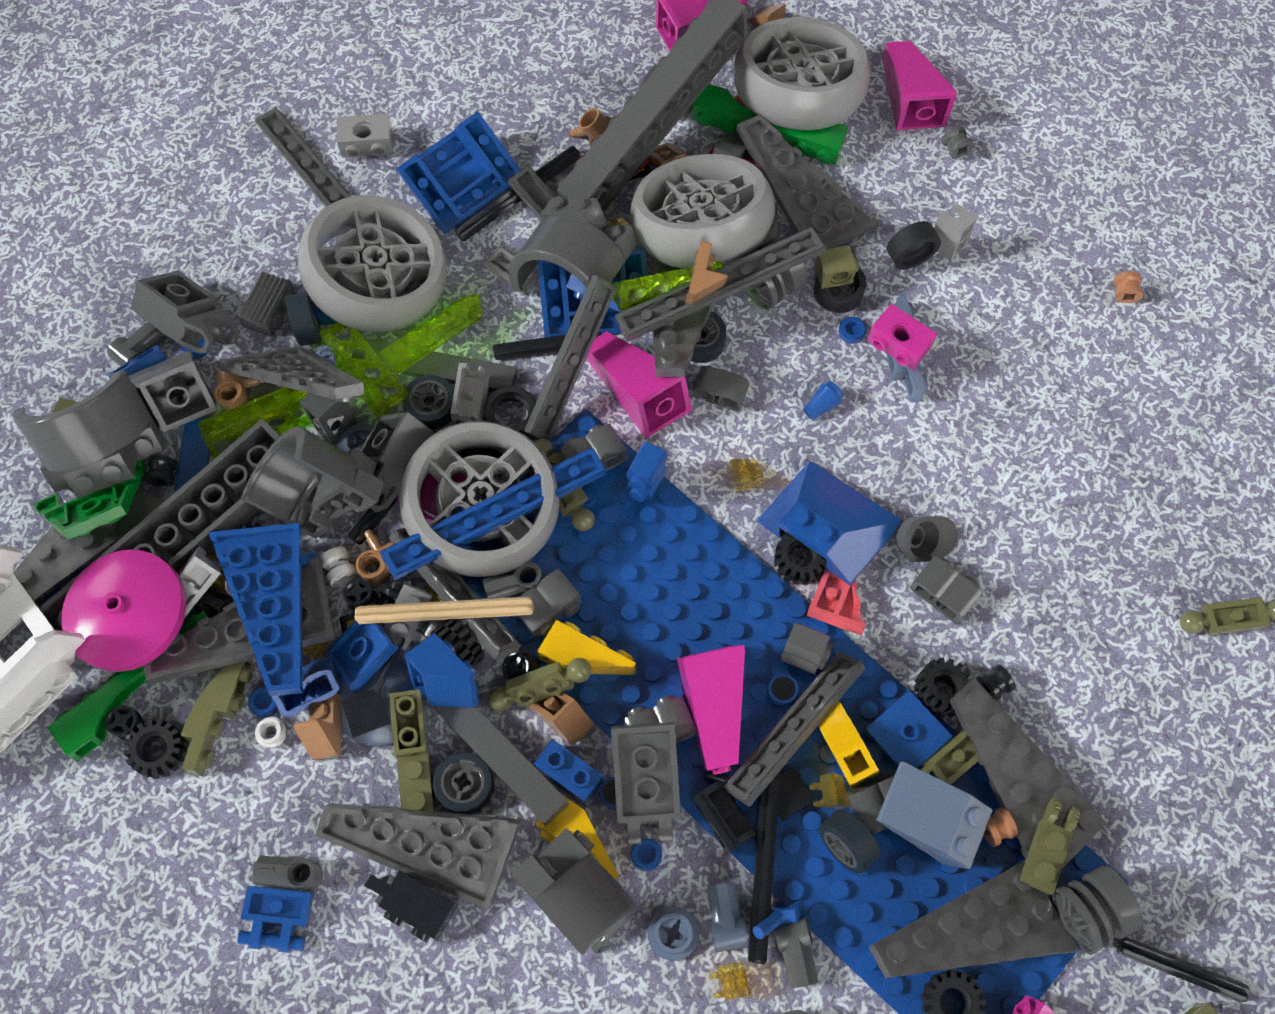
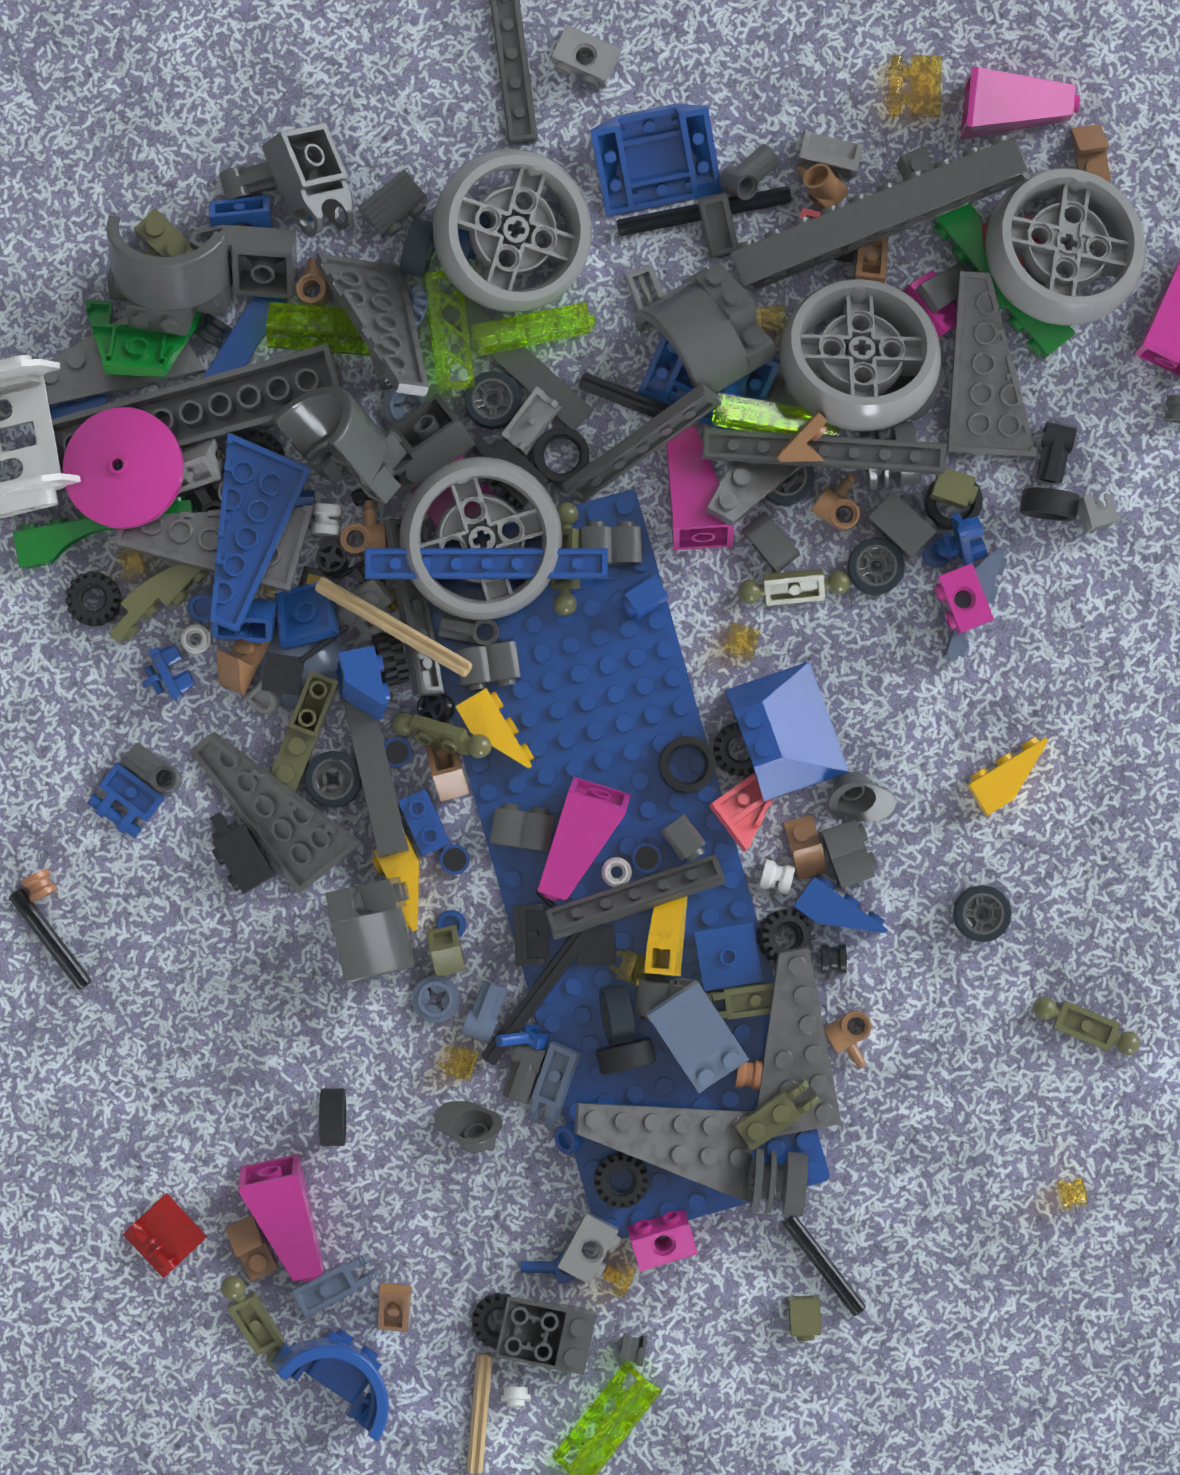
camera: 30 degrees right, 20 degrees up
(119, 717) = (71, 559): black wheel -> none
(177, 698) = (132, 564): none -> clear yellow slope
(249, 764) = (175, 684): none -> blue hips
(361, 748) = (263, 701): none -> light grey tile
(510, 726) = (398, 752): none -> black tile
(537, 148) = (744, 179): none -> dark grey piece
(573, 114) = (838, 154): none -> light grey hinge
(629, 39) = (924, 86): none -> clear yellow plate
(646, 778) = (484, 866): dark grey tile -> none
(656, 878) = (446, 950): none -> olive brick
(749, 332) = (833, 500): none -> medium nougat piece
(760, 410) = (794, 587): none -> olive plate
(771, 710) = (623, 864): none -> white plate
(775, 570) = (705, 750): none -> black tyre
(807, 350) = (880, 551): none -> wheel
(815, 320) = (903, 526): none -> dark grey brick
(823, 400) = (858, 611): blue cone -> none
(831, 945) = (553, 1082): none -> sand blue hinge
(866, 302) = (959, 544): none -> blue hips
(878, 993) = (567, 1140): none -> blue tile
(882, 875) = (626, 1056): none -> black tyre
(887, 210) = (1056, 447): none -> black piece
(902, 642) = (776, 876): none -> white wheel
(908, 607) = (805, 847): none -> medium nougat slope
(968, 640) = (827, 907): none -> blue slope
(1028, 460) = (1003, 782): none -> yellow slope
(1055, 746) = (843, 1040): none -> medium nougat piece
(1091, 562) = (984, 929): none -> wheel

